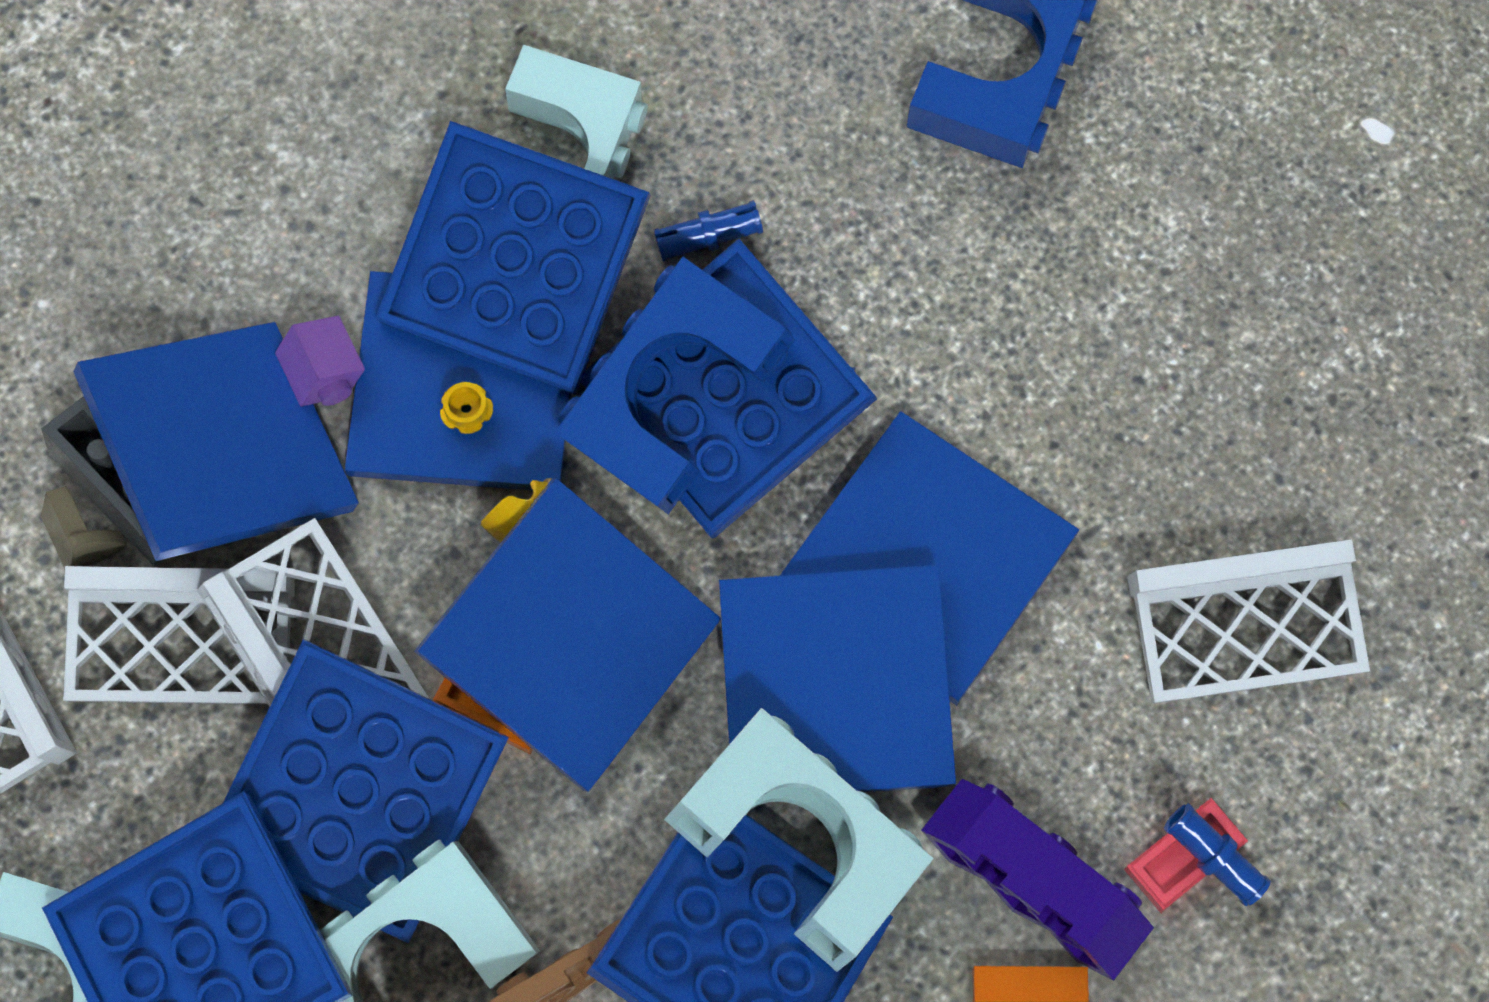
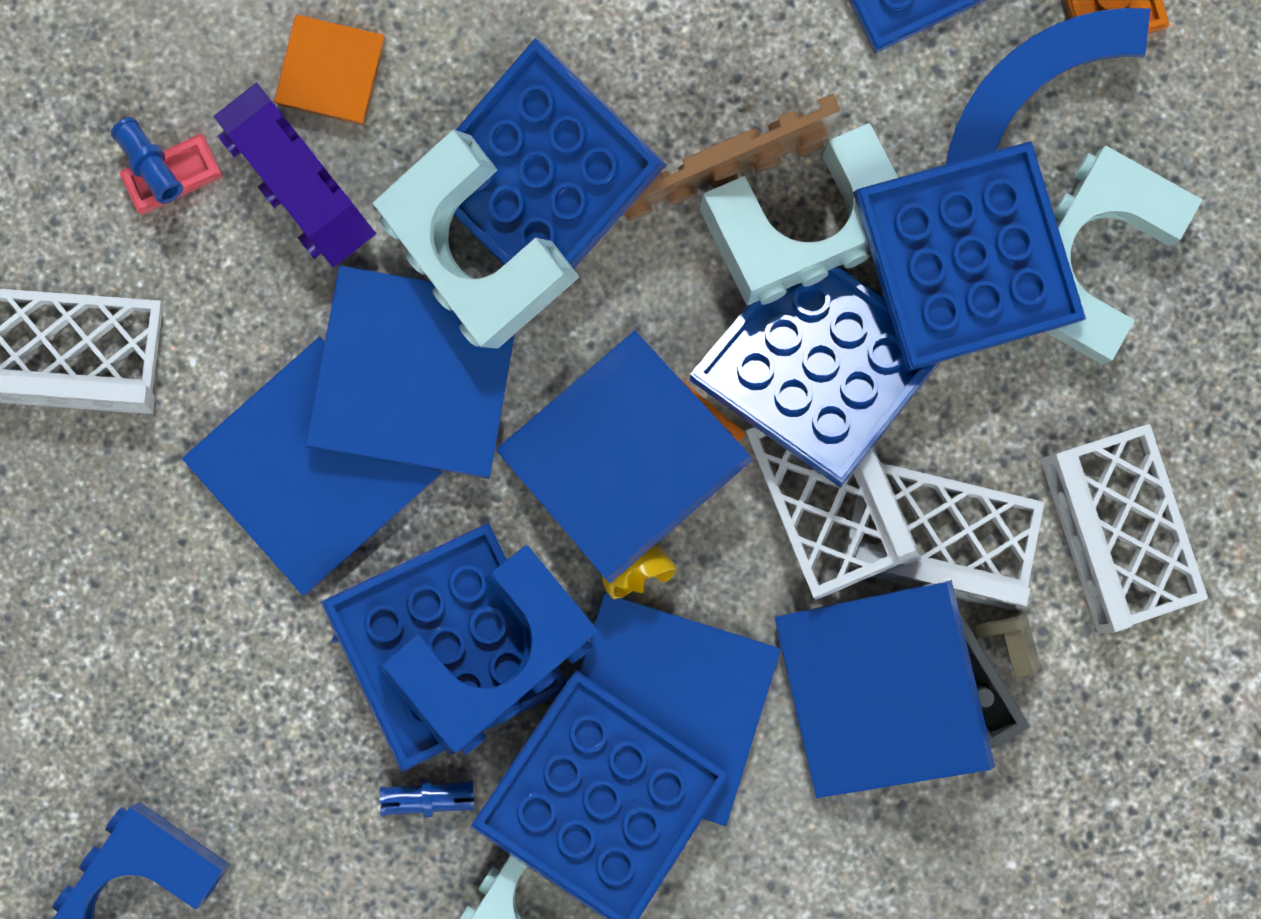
camera: 165 degrees left, 15 degrees up
(320, 361) = (783, 746): medium lavender brick -> none
(466, 394) = (681, 675): yellow plate -> none

